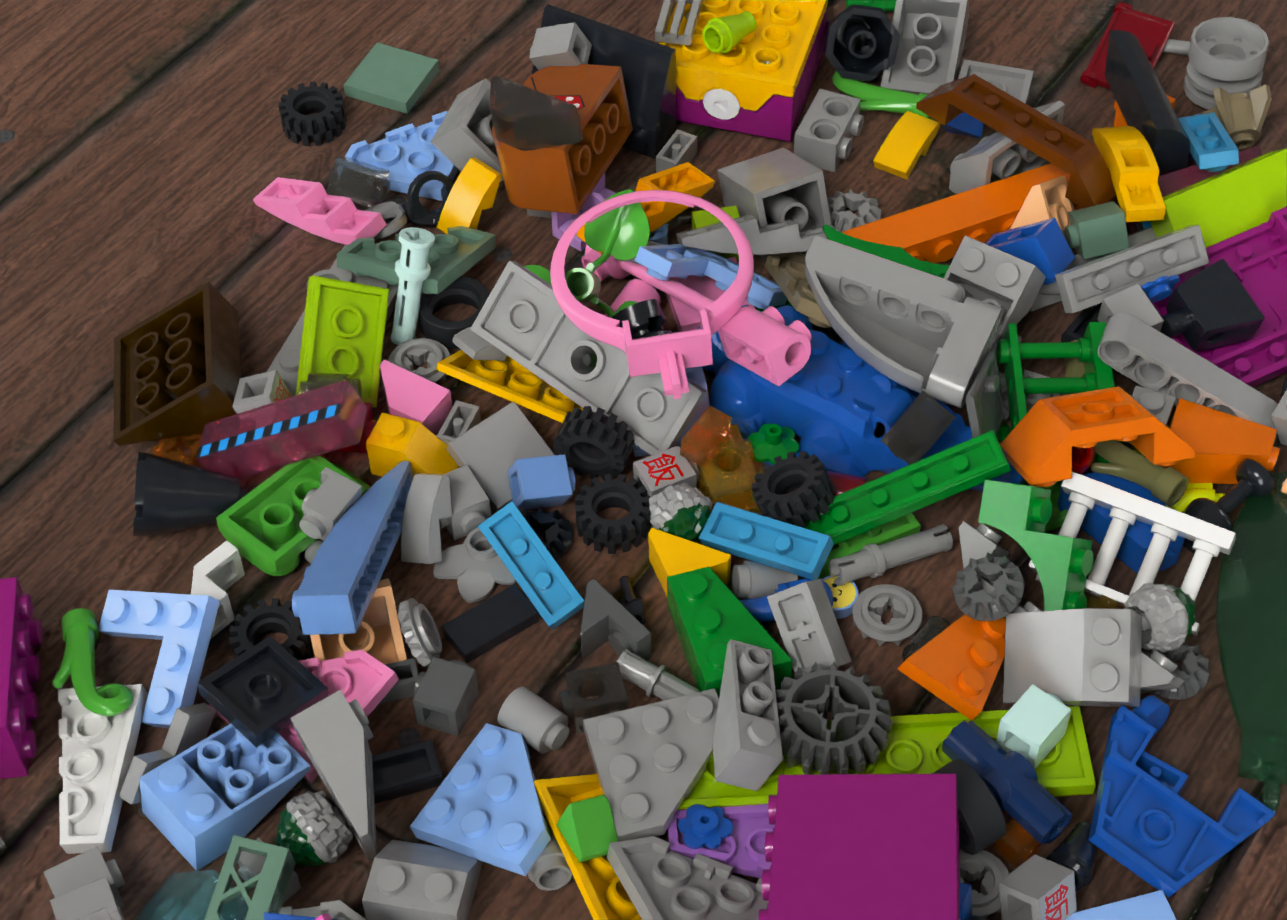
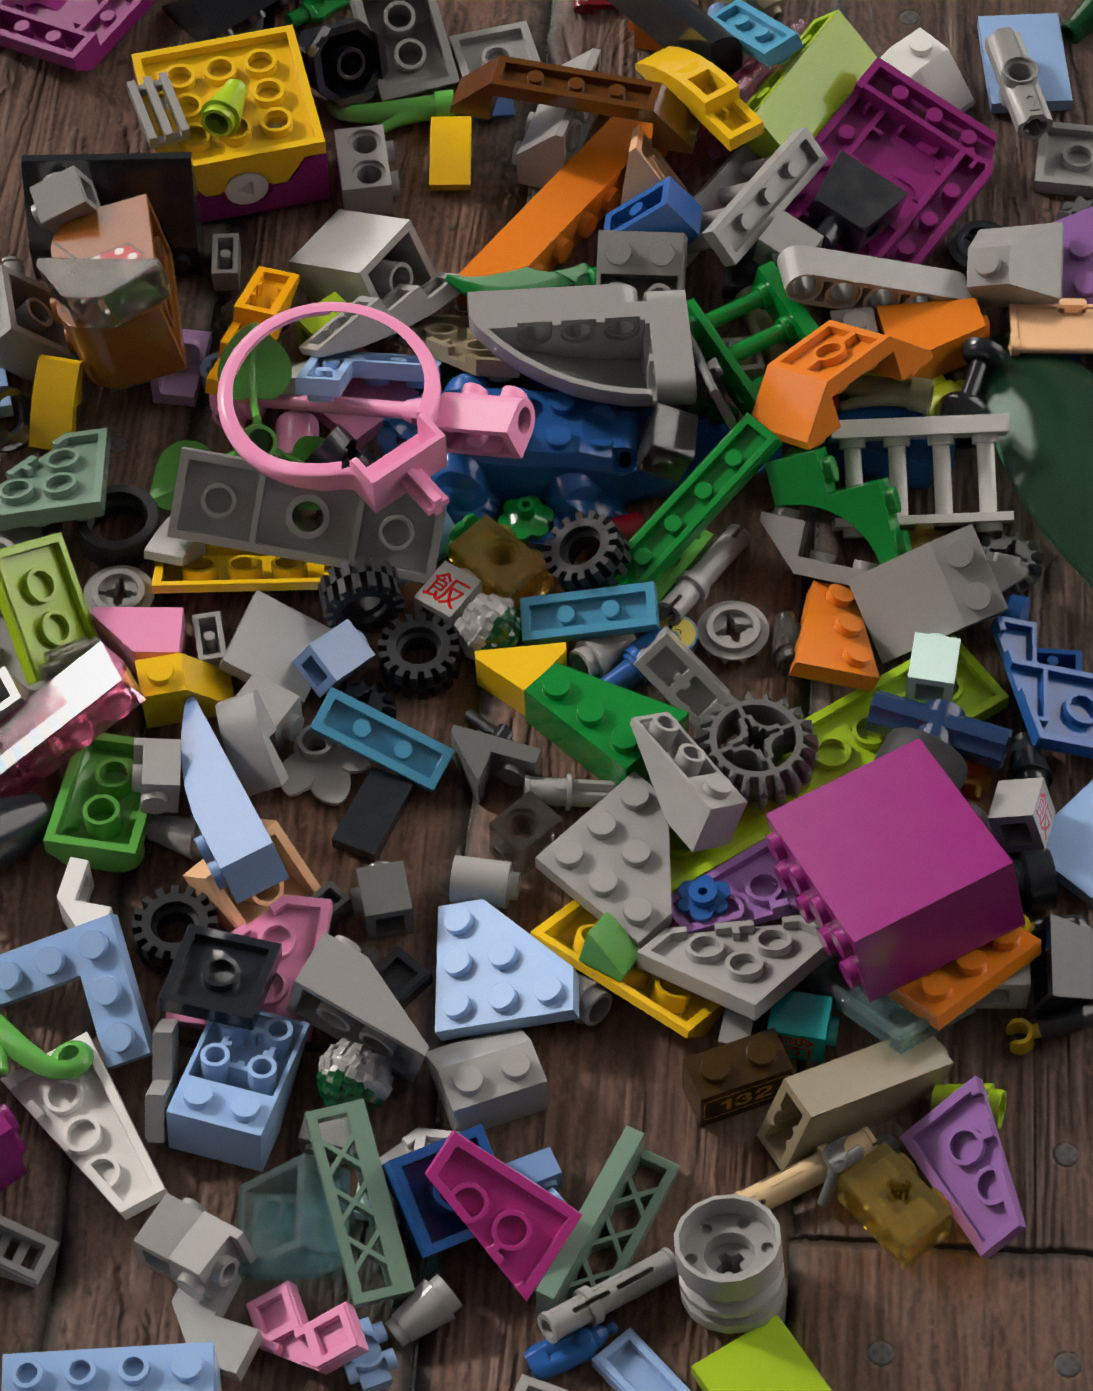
camera: 30 degrees left, 5 degrees up
(412, 271) = (72, 505): light aqua pin -> none
(419, 631) = (322, 853): light grey gear -> none
(706, 436) = (470, 539): clear orange piece -> none
(867, 210) = (460, 250): light grey gear -> none
(979, 604) = (821, 582): dark grey gear -> none
(1097, 230) = (705, 168): sand green brick -> none
(1160, 288) = (802, 204): blue plant -> none
(1166, 615) = (991, 515): light grey piece -> none

